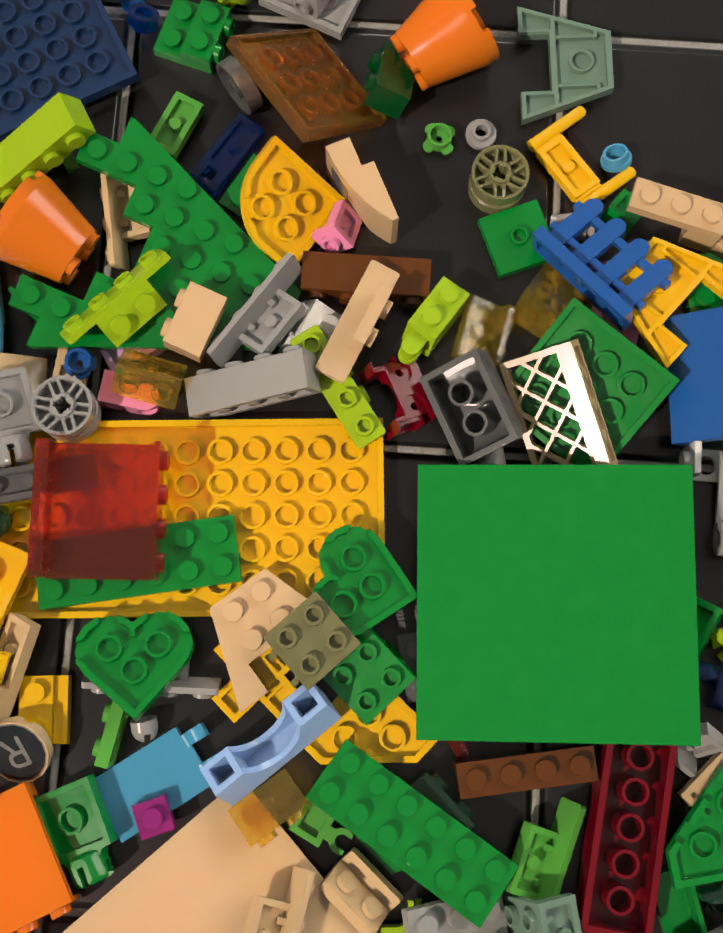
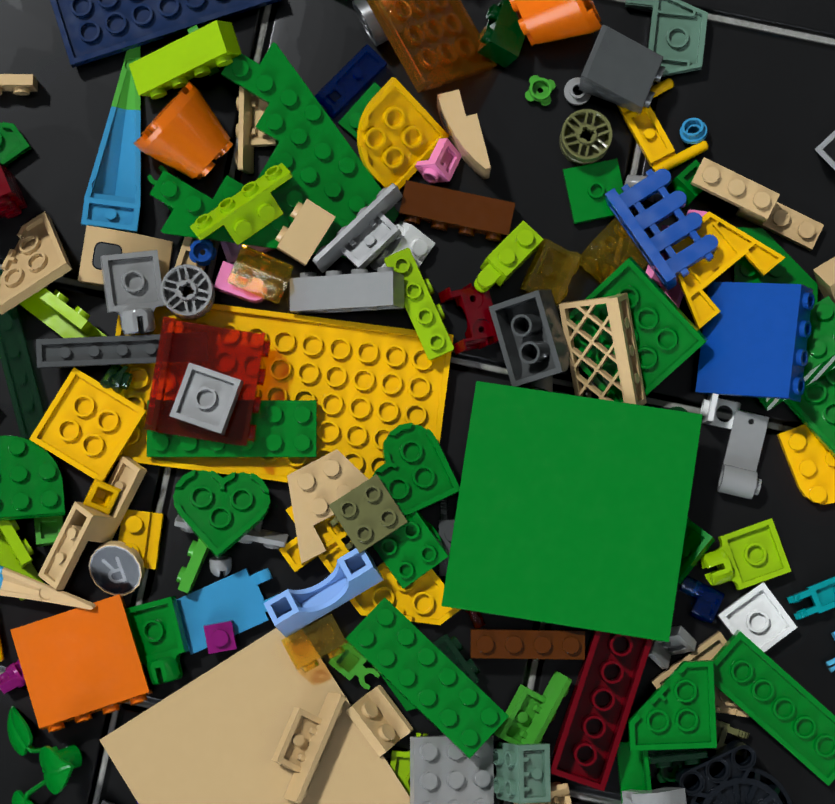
camera: 10 degrees right, 5 degrees up
(99, 529) = (206, 398): none -> light grey plate
(177, 123) = (310, 46): bright green plate -> none
(358, 322) = (444, 251): tan bracket -> none
(527, 98) = (621, 71): none -> dark grey slope

